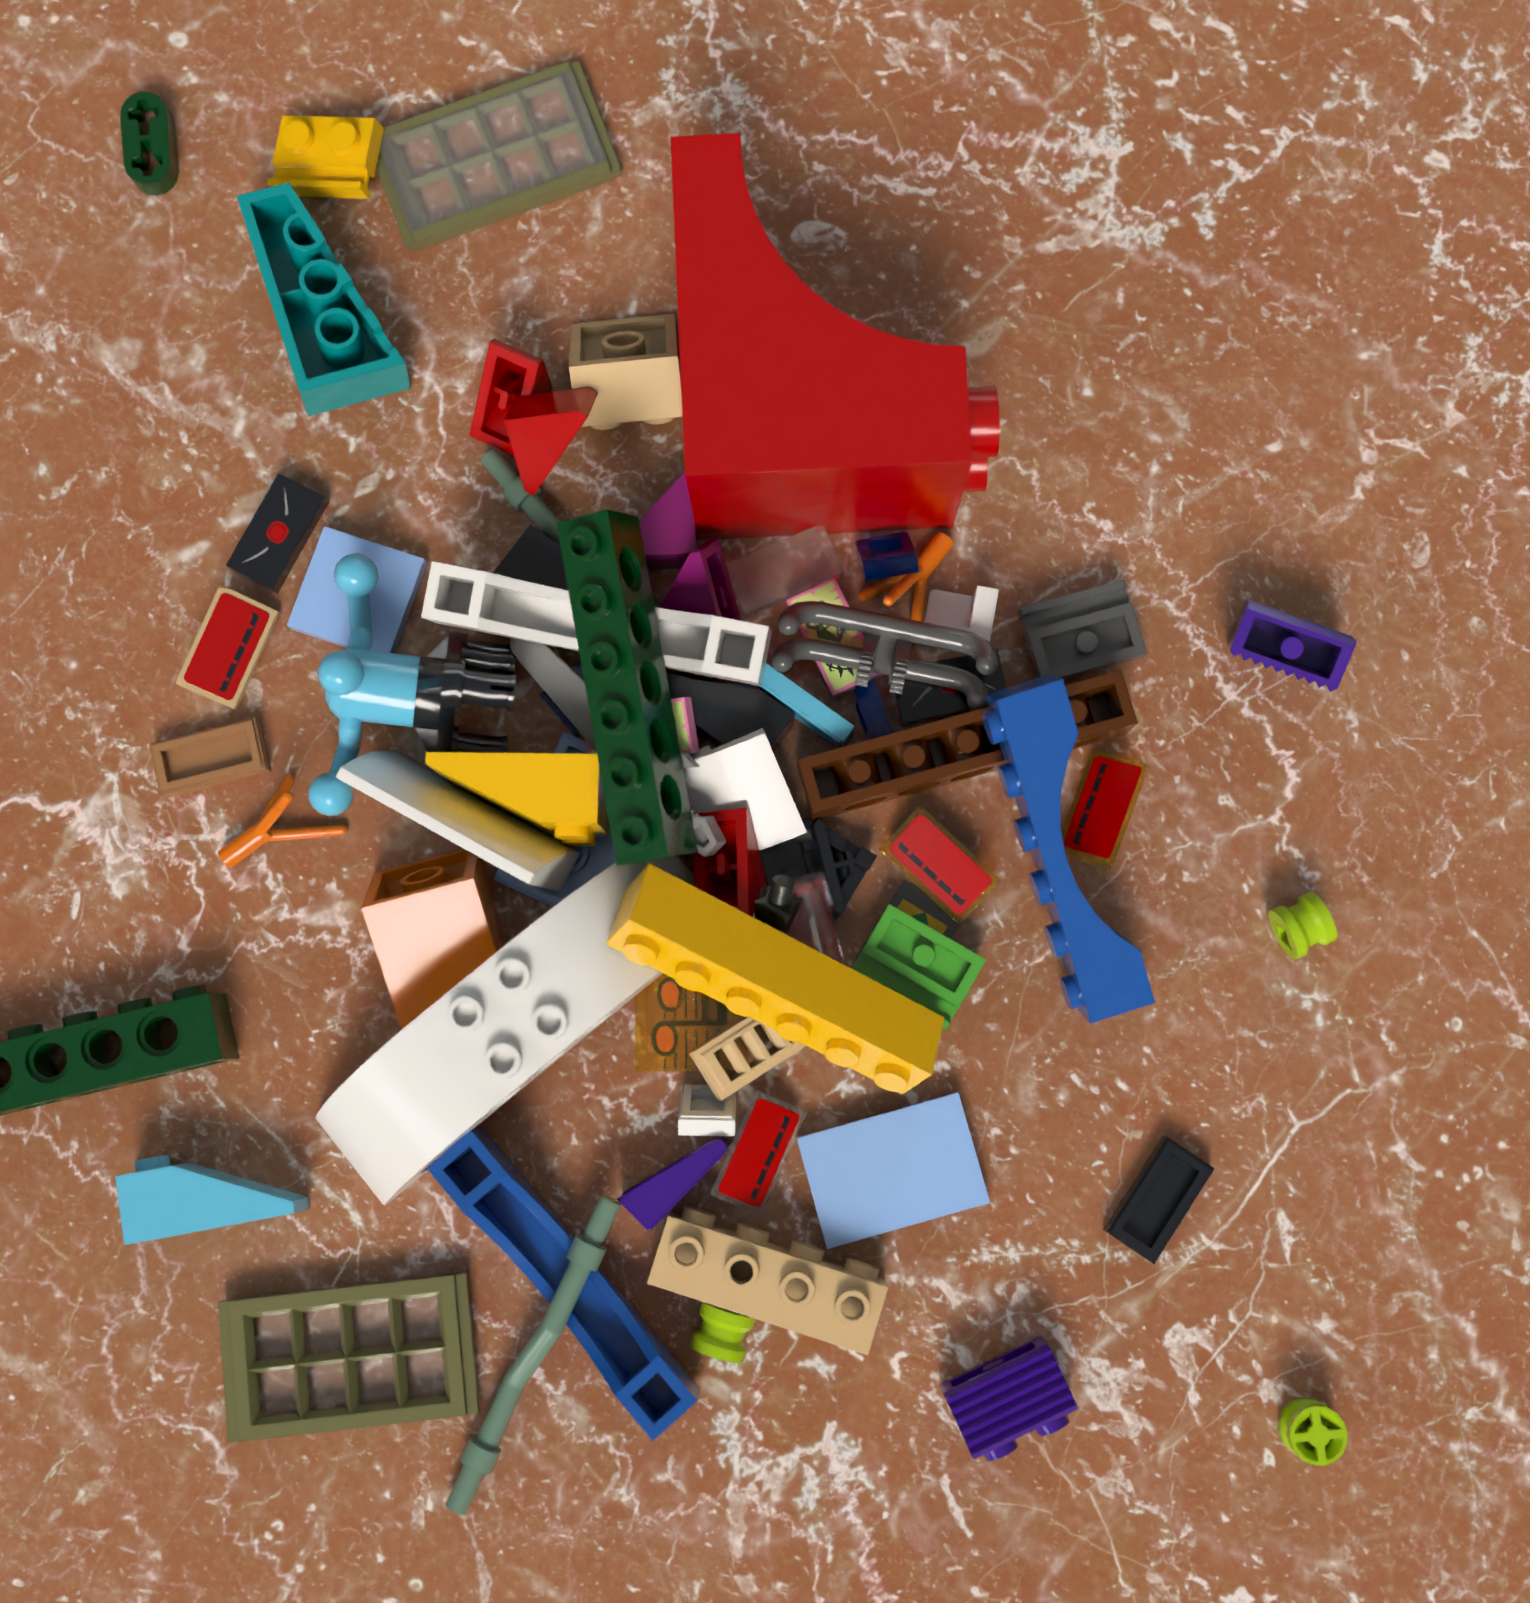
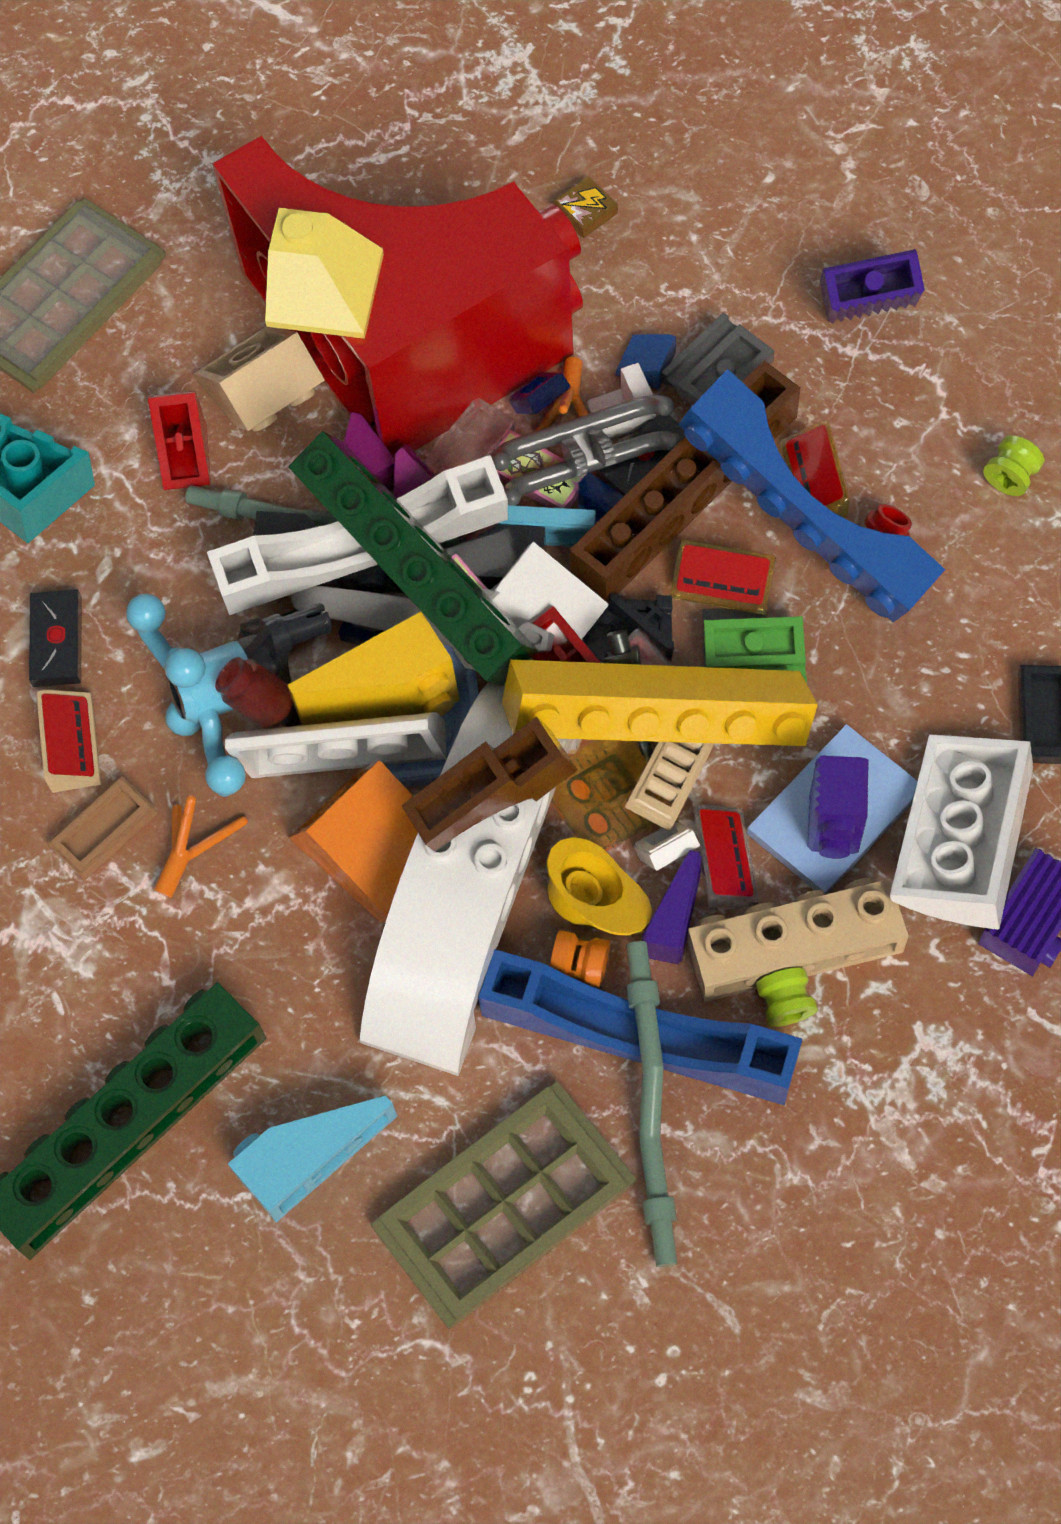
camera: 30 degrees left, 15 degrees down
(323, 608) = (124, 658): light blue tile -> none
(397, 731) = (254, 692): none -> clear red brick
(542, 991) = (489, 782): none -> reddish brown slope
(543, 428) = (228, 439): red slope -> none
(565, 1181) = (591, 960): none -> orange wheel
(611, 1120) = (594, 890): none -> yellow piece
(694, 344) = (320, 275): none -> light yellow slope
(881, 1195) = (838, 805): none -> dark purple brick
(993, 1278) = (964, 829): none -> white slope
(1019, 578) = (652, 353): none -> blue slope
(1066, 370) = (587, 206): none -> pearl gold tile
(1135, 912) = (888, 520): none -> red plate

